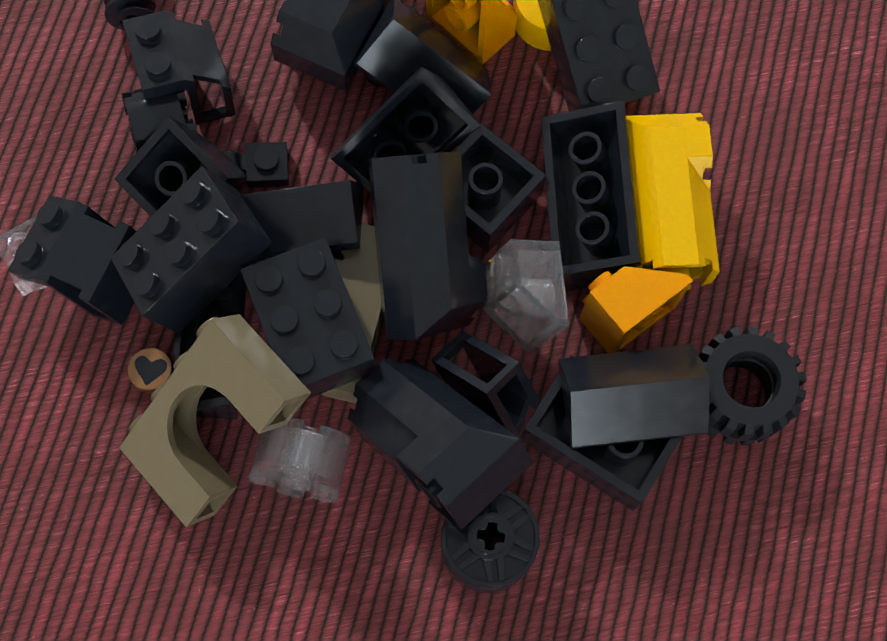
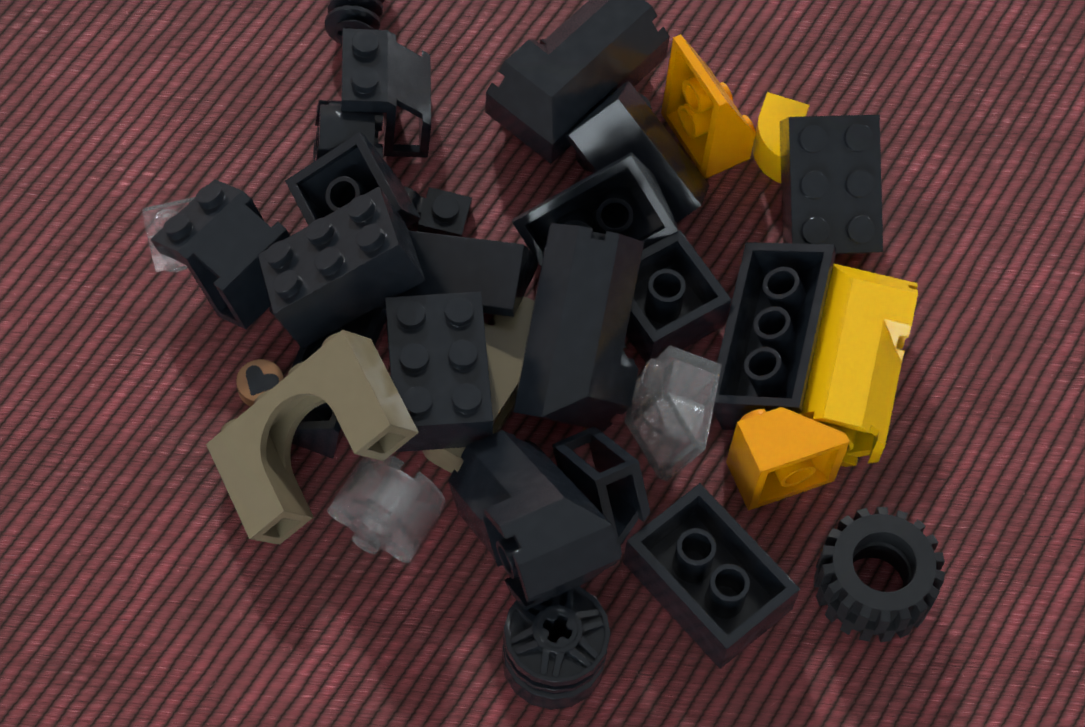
camera: 15 degrees right, 10 degrees down
(635, 396) = (752, 541): black slope -> none

